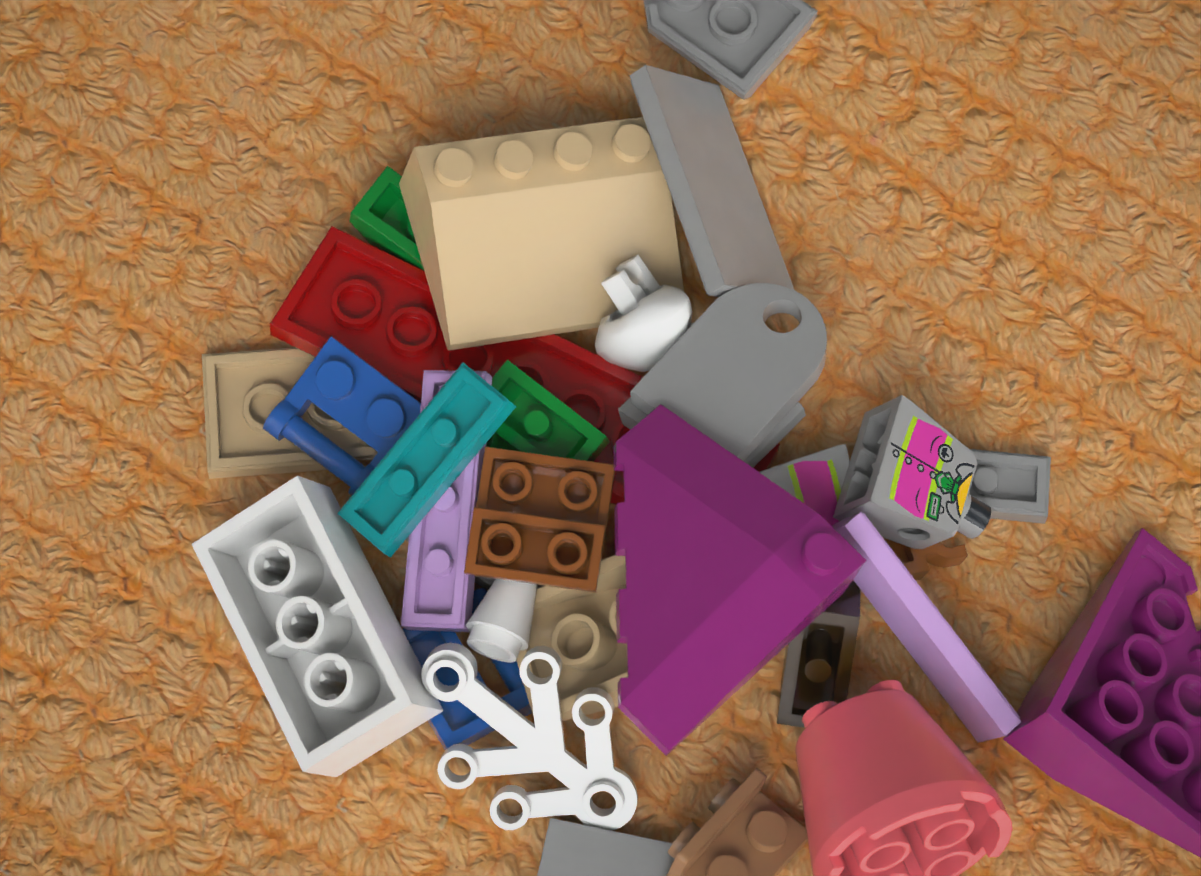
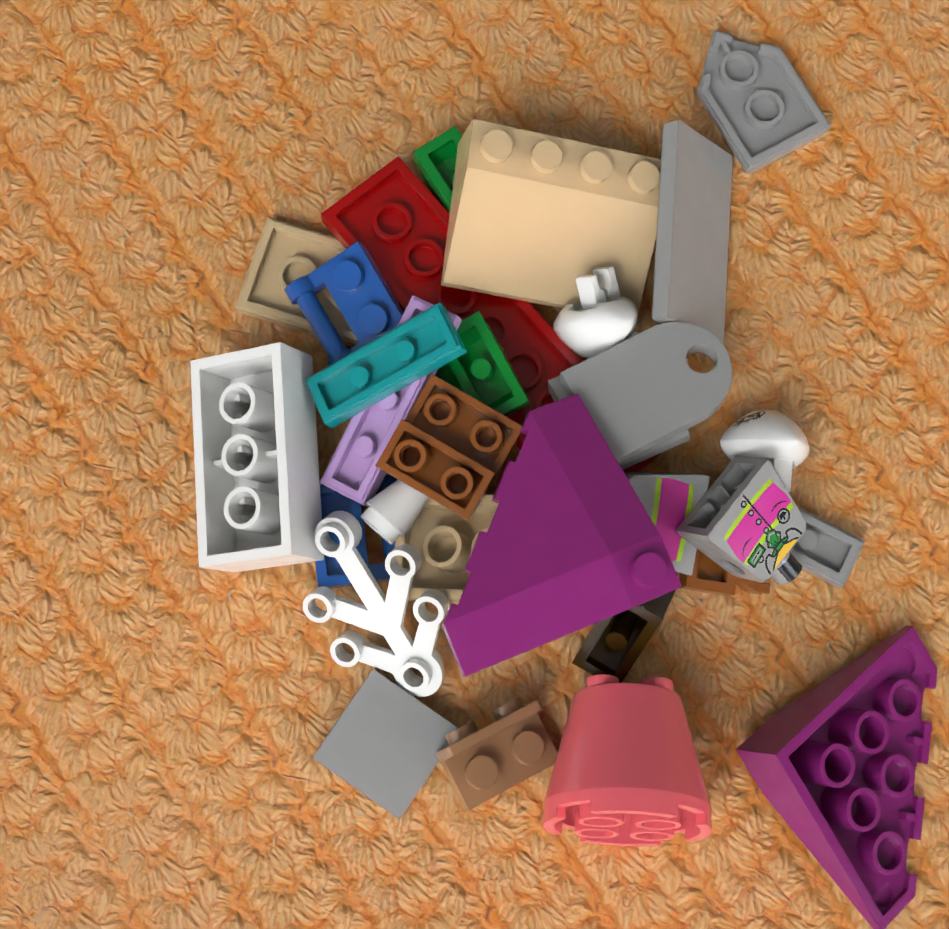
camera: 25 degrees right, 10 degrees up
(890, 375) = (770, 437): none -> white piece
(927, 634) = (709, 645): lavender tile -> none

